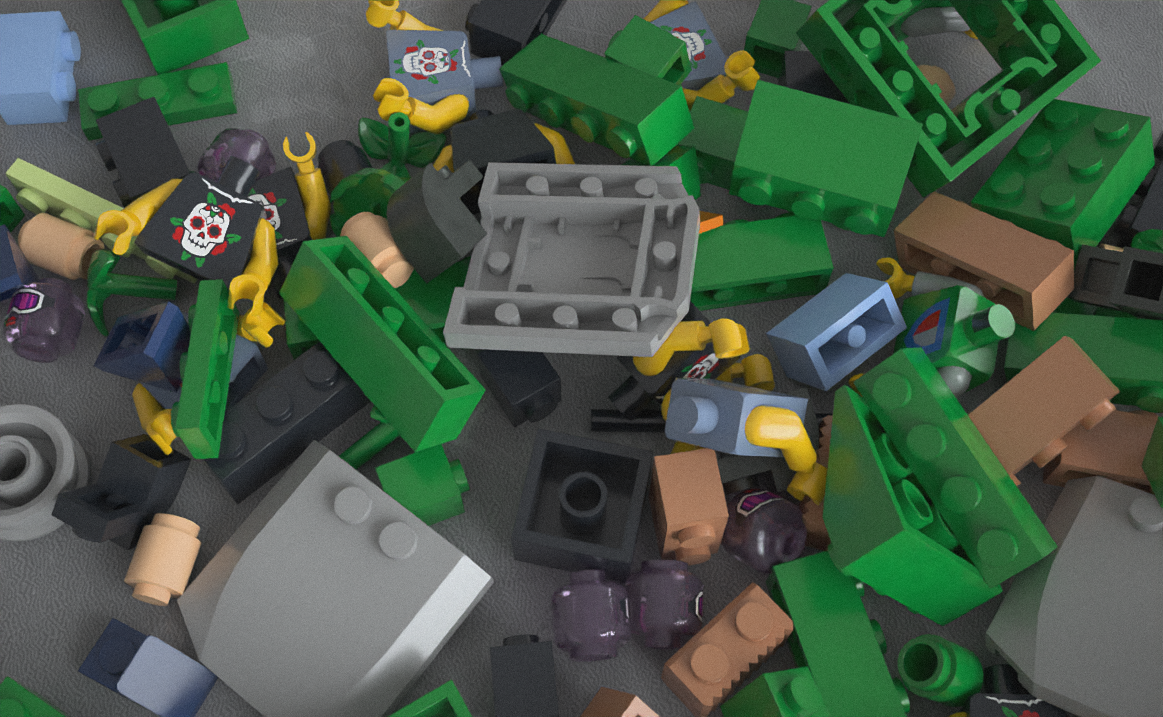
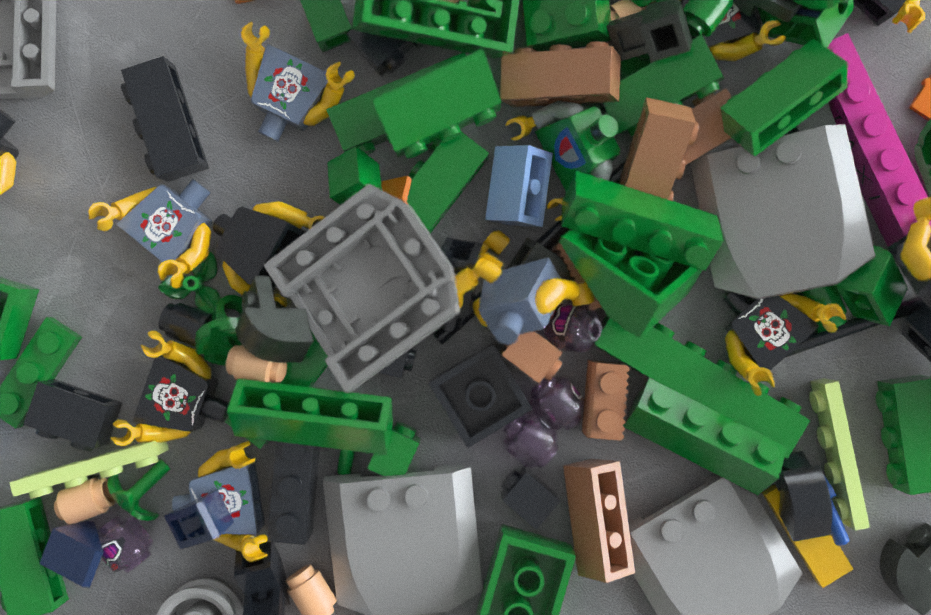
camera: 45 degrees left, 25 degrees up
(203, 230) = (163, 441): torso -> none
(206, 371) = (242, 506): green plate -> none
(239, 143) = (122, 374): clear purple head -> none
(598, 99) = (277, 166): green brick -> none
(650, 51) = (283, 118): green brick -> none
(940, 670) = (706, 322): green brick -> none

